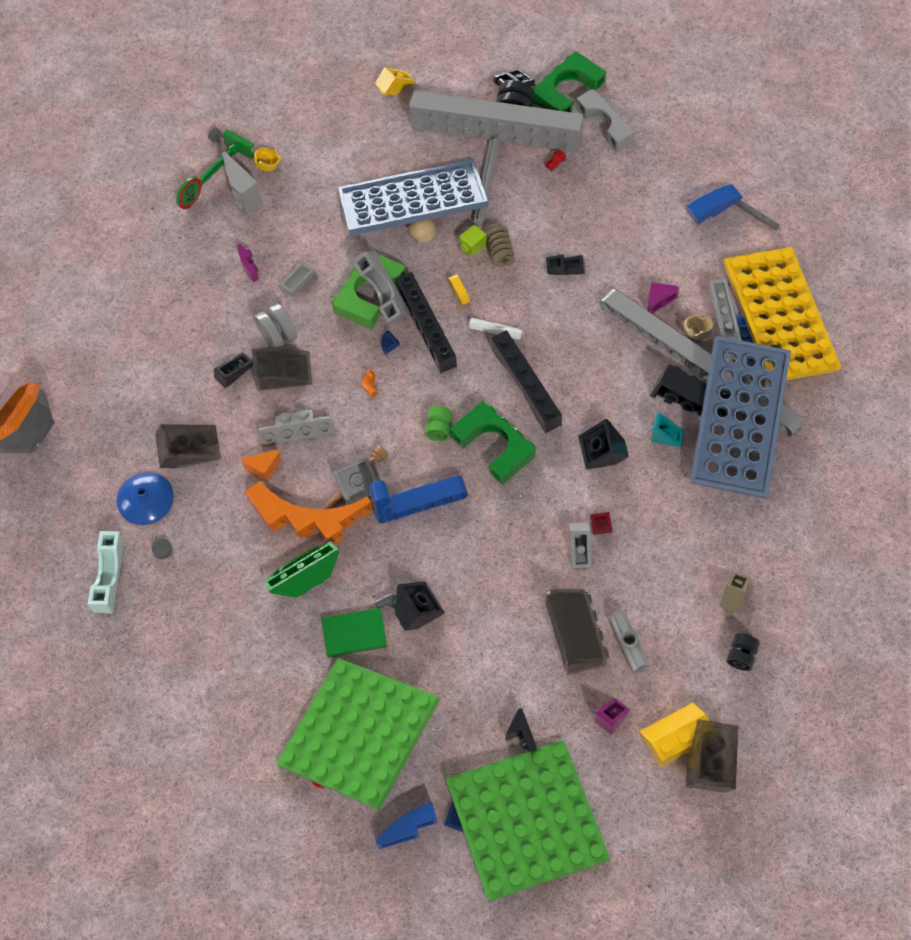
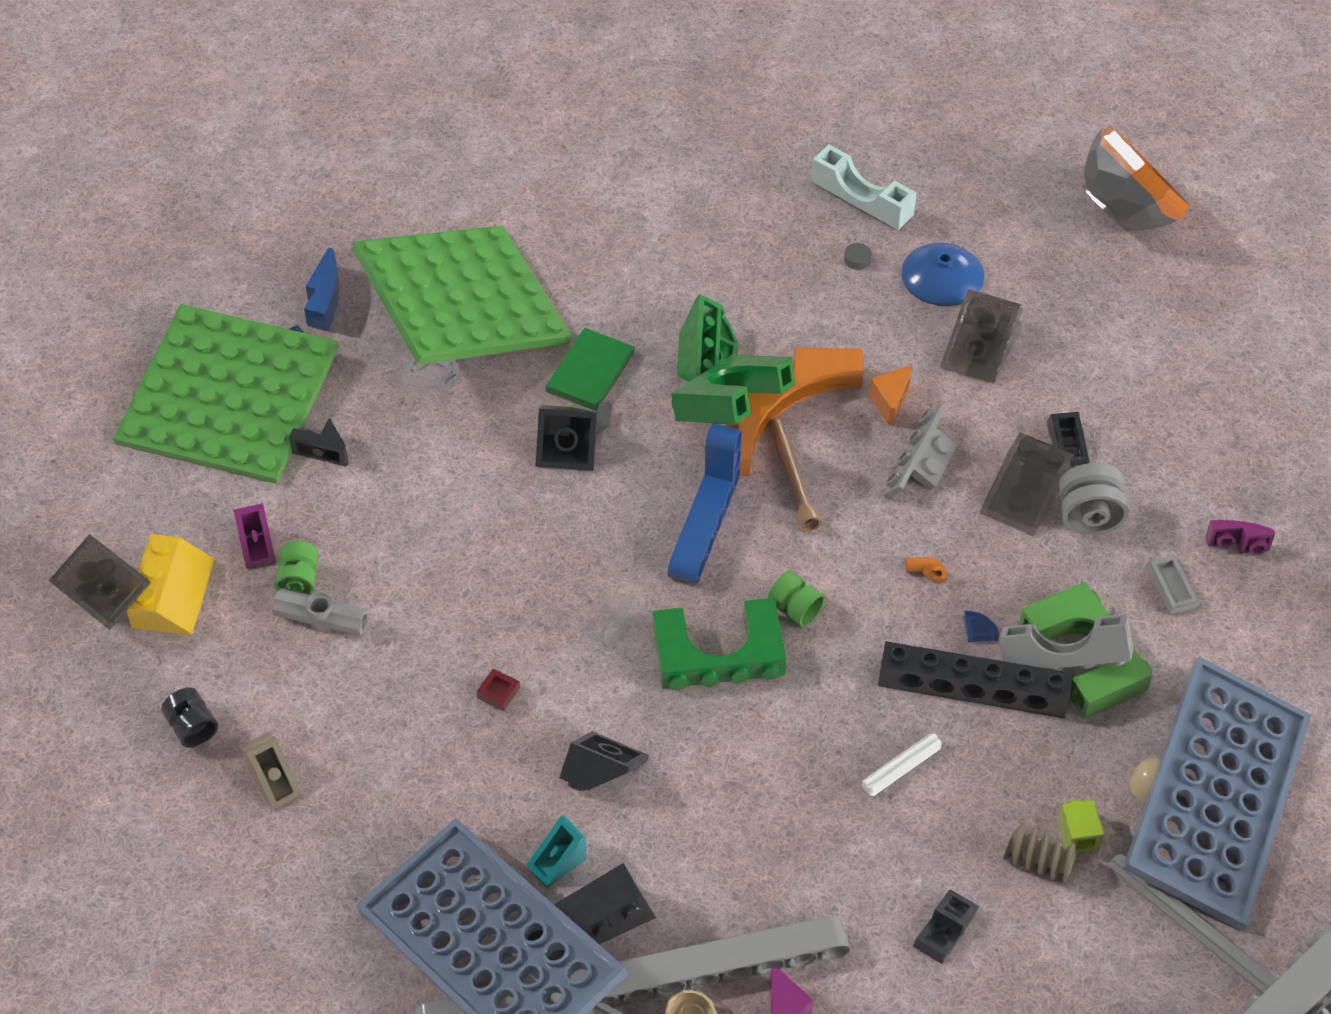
camera: 120 degrees right, 10 degrees down
(355, 480) = (784, 470): light grey tile -> none
(362, 518) = (723, 390): none -> green arch
(458, 290) = (1003, 755): yellow beam -> none
(538, 398) = (725, 728): black arch -> none
(576, 629) = (388, 561): clear smoke windscreen -> none
(580, 545) = (492, 645): light grey slope -> none
(608, 676) = (297, 567): none -> bright green wheel

